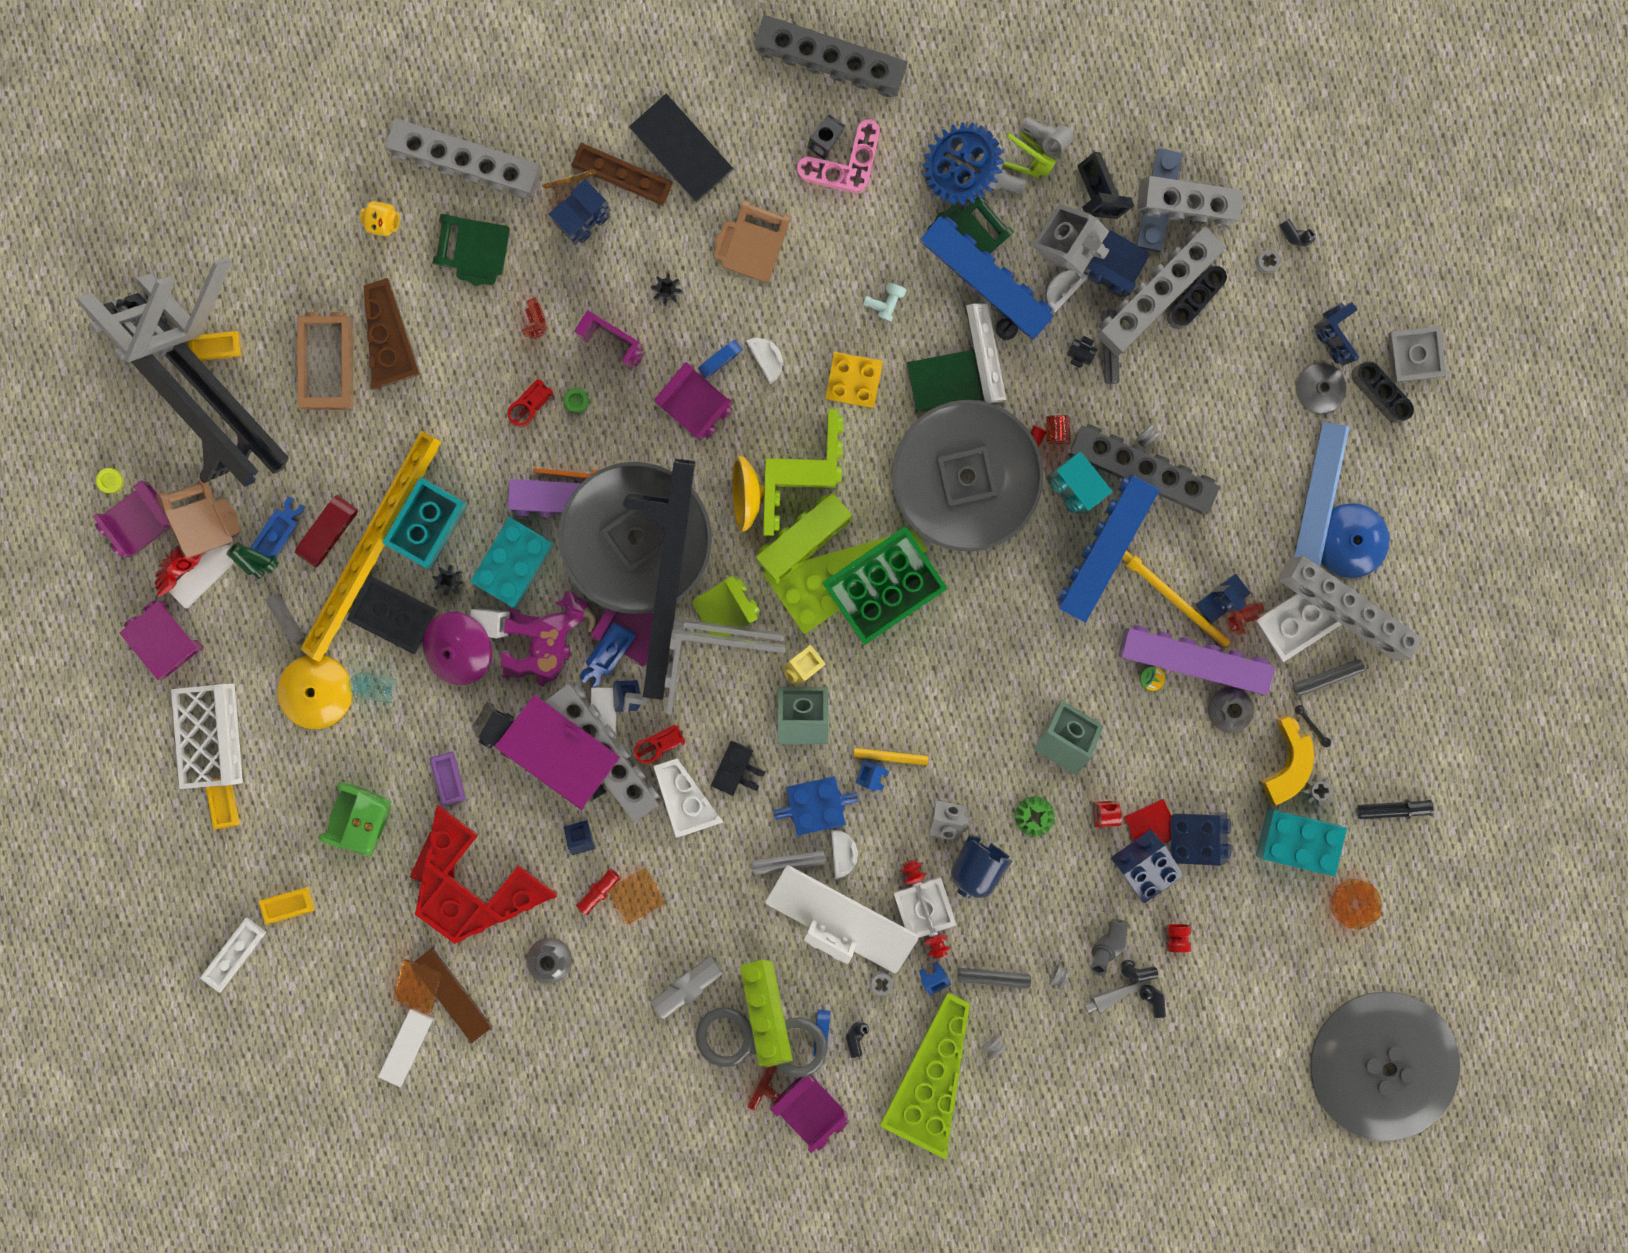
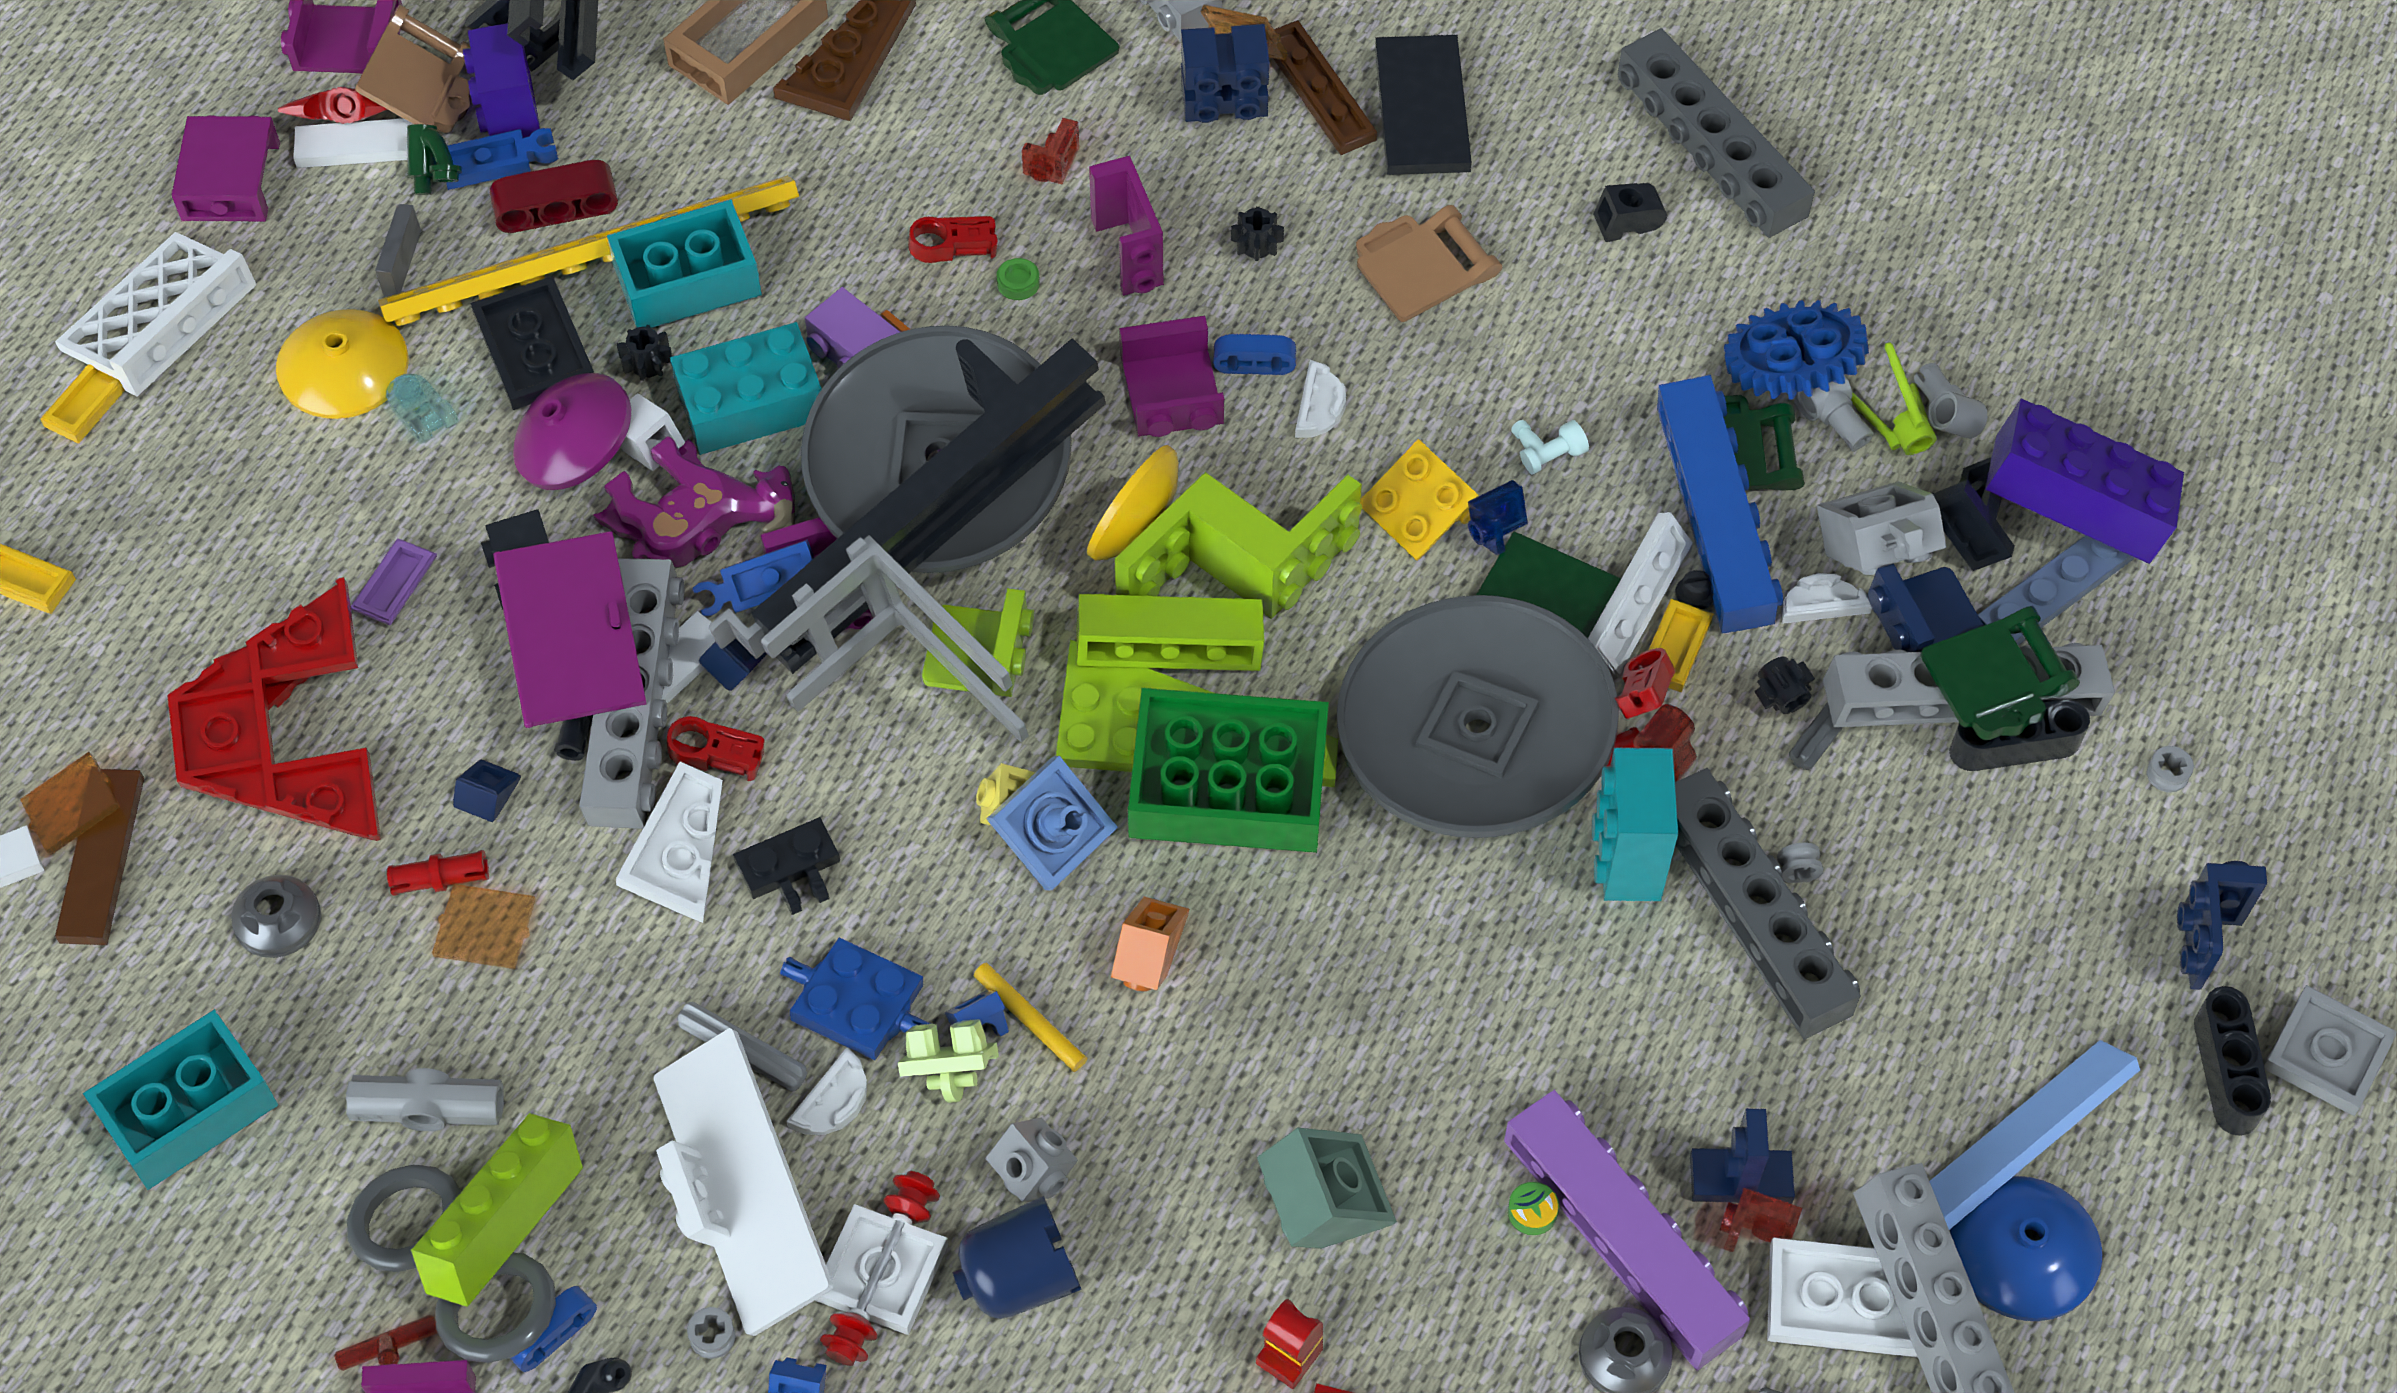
camera: 35 degrees right, 30 degrees down
(254, 501) = (500, 82): none -> dark purple brick
(356, 819) = (229, 542): bright green piece -> none
(595, 1068) = (181, 1099): none -> teal brick
(802, 715) = (950, 859): sand green slope -> none
(831, 669) = (1052, 823): none -> medium blue plate
(846, 172) = (1628, 270): bright pink beam -> none
(879, 806) = (927, 1057): none -> yellowish green hips
(893, 362) = (1497, 515): none -> clear blue bracket
(914, 687) = (1148, 944): none -> slope
(1018, 363) = (1682, 636): none -> yellow tile
(1030, 406) = (1645, 682): none -> red piece
(1038, 805) = (1189, 1286): bright green gear -> none
(1108, 547) = (1612, 953): blue brick -> none
(1134, 563) = (1638, 1025): yellow bar -> none
(1143, 142) = (2085, 481): none -> dark purple brick
(1174, 288) = (1991, 679): none -> dark green piece
(1227, 201) = (2125, 600): light grey brick -> none
(1297, 237) = (2236, 765): black arm -> none
(1309, 388) = (2125, 1013): flat silver dish -> none

